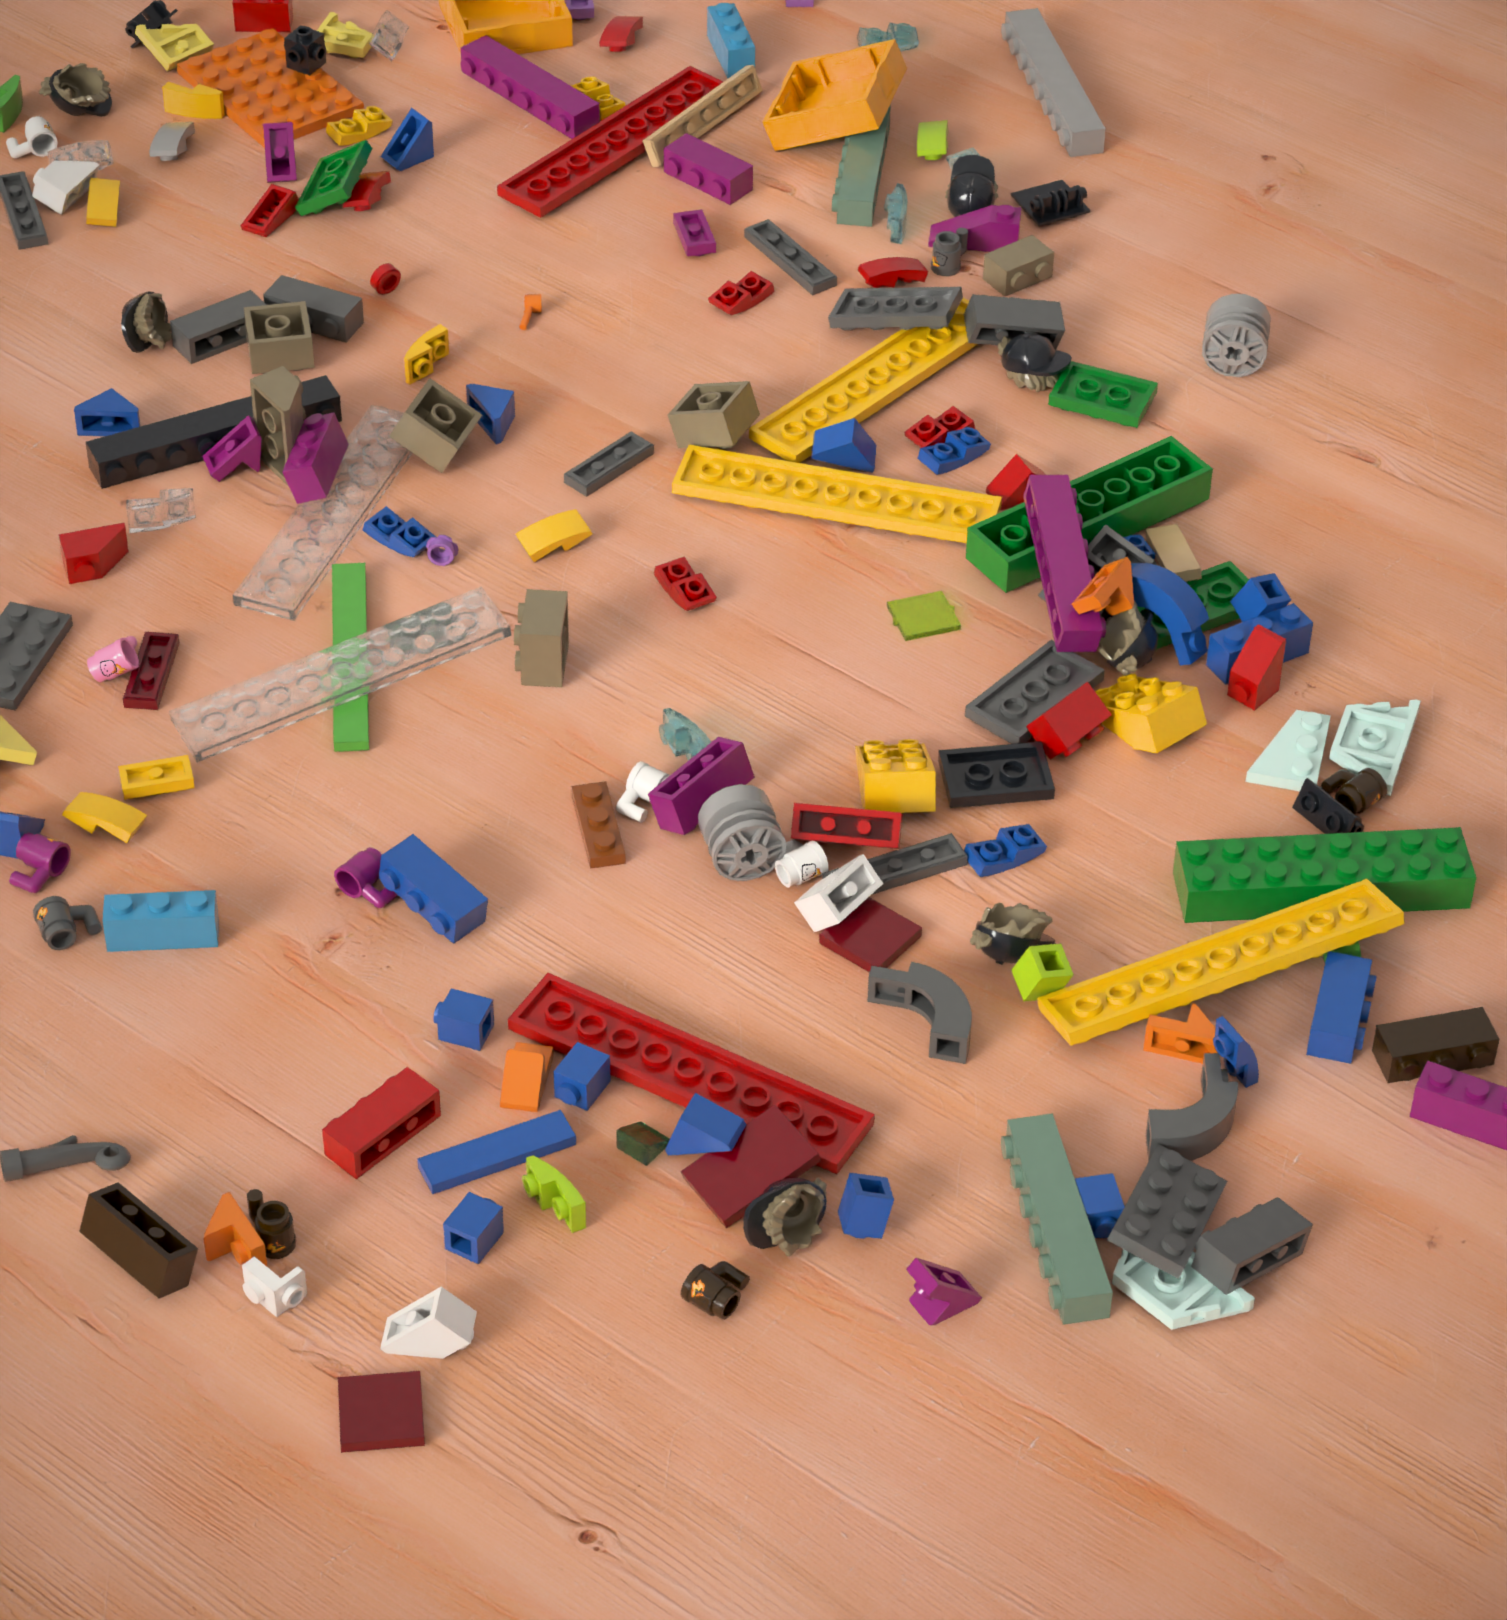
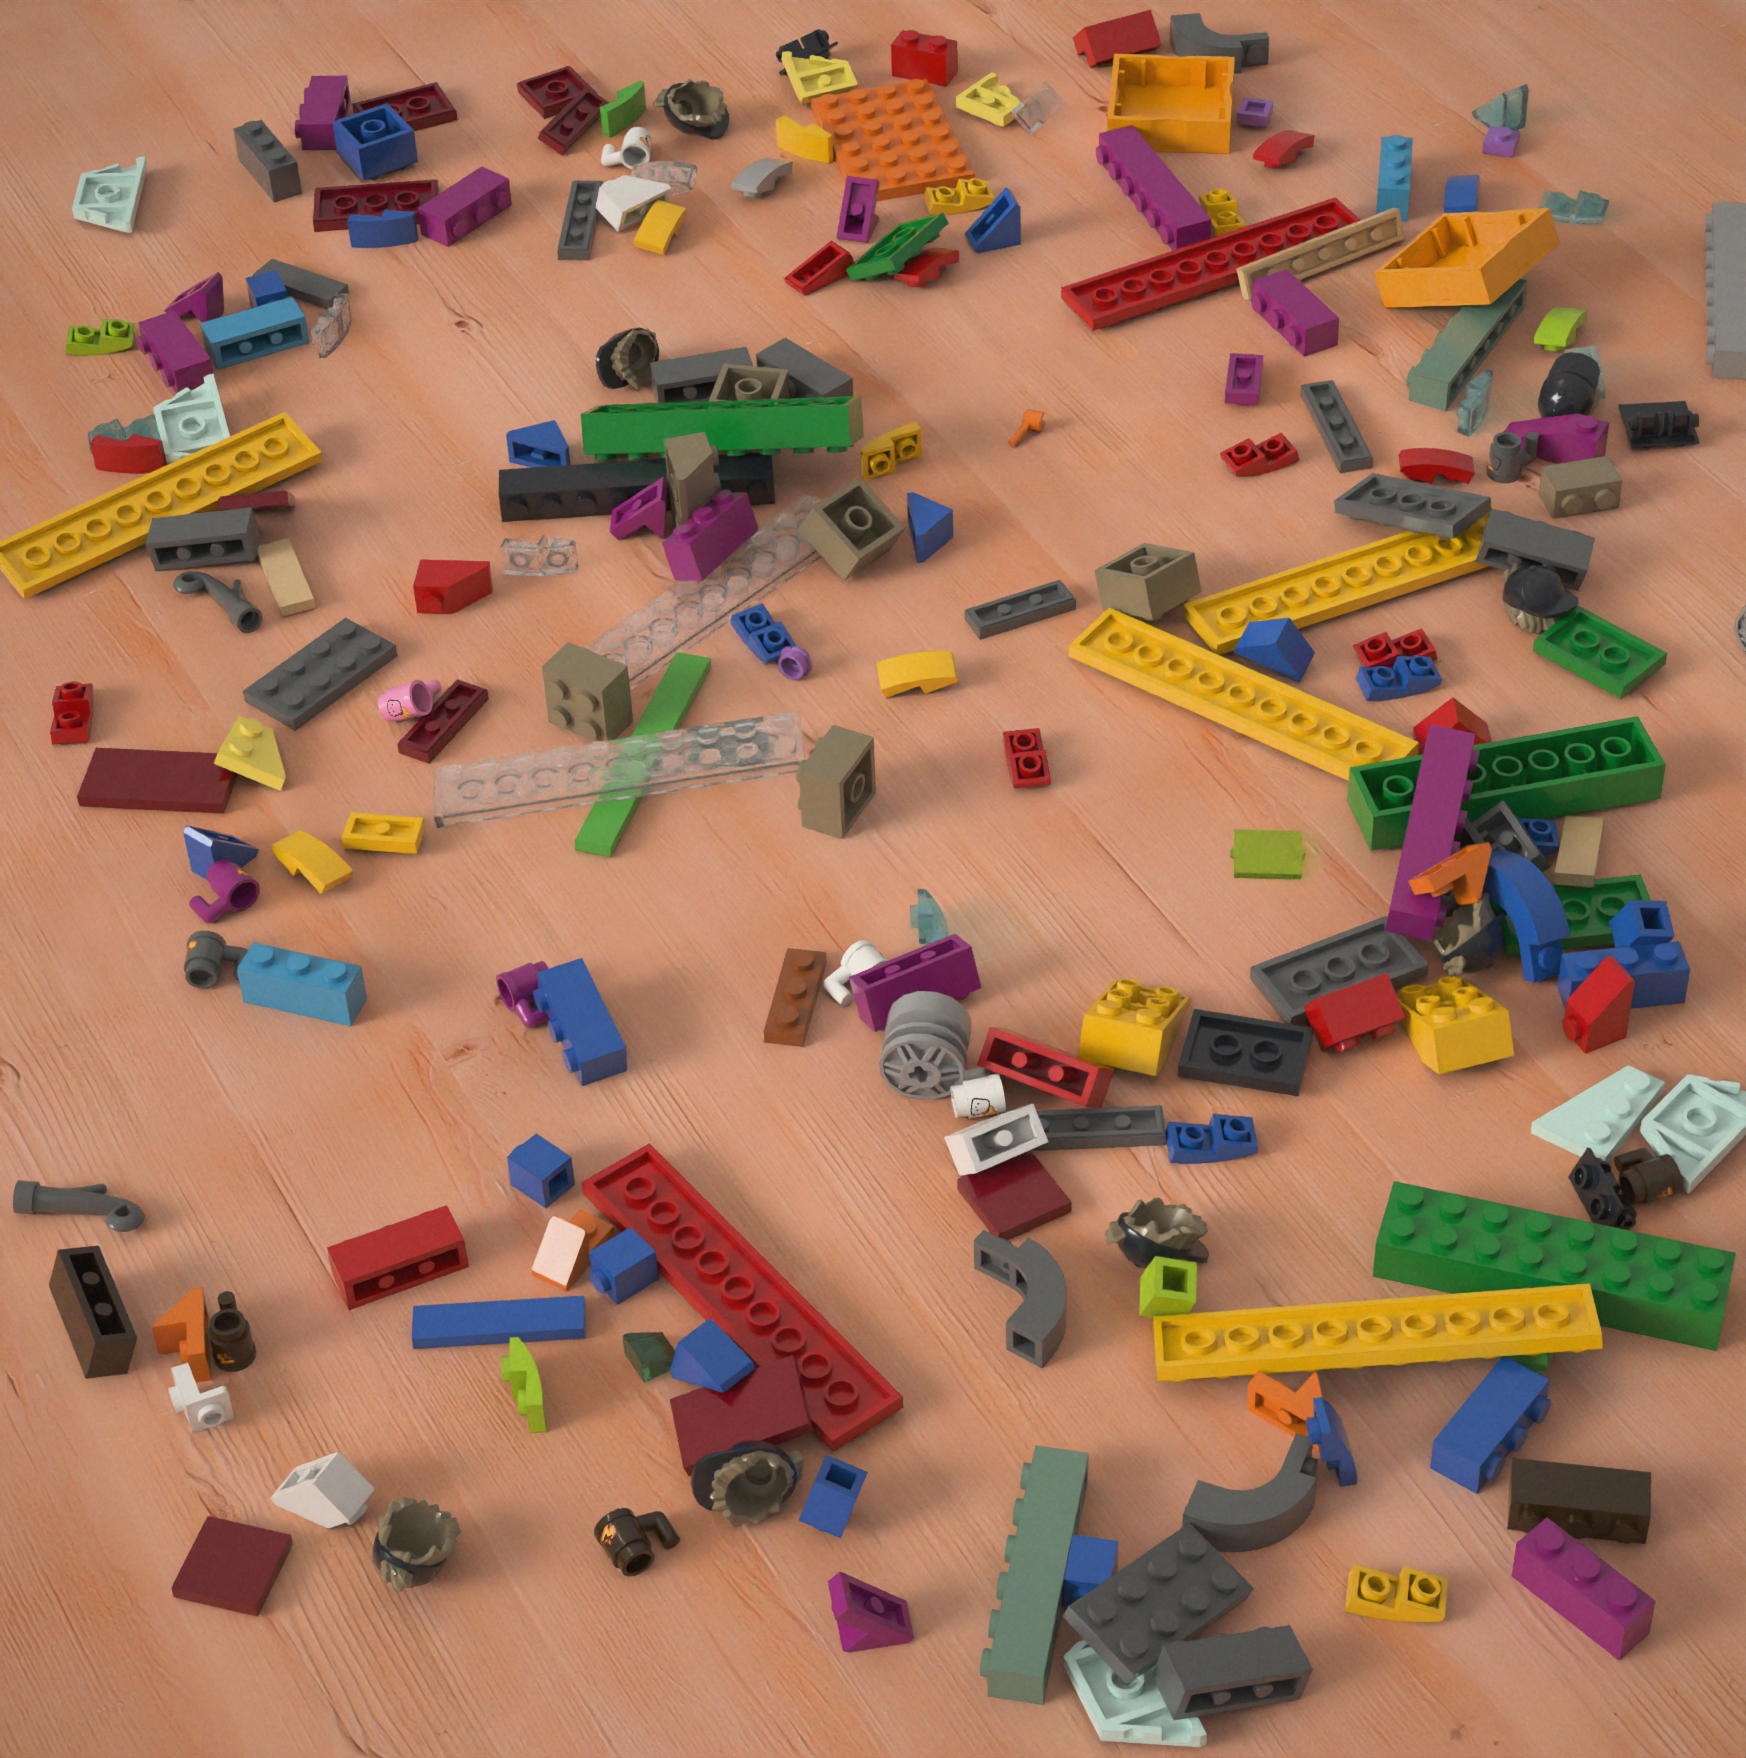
camera: 25 degrees right, 0 degrees up
(281, 615) = (587, 693): none -> dark tan brick
(302, 353) = (727, 424): none -> green brick
(305, 50) = (936, 107): black brick -> none
(385, 278) = (894, 363): red tile -> none
(473, 1227) = (426, 1396): blue brick -> none
(538, 1344) = (413, 1542): none -> dark tan hair
(792, 44) = (1461, 193): none -> blue slope
(1342, 1154) = (1404, 1598): none -> yellow slope

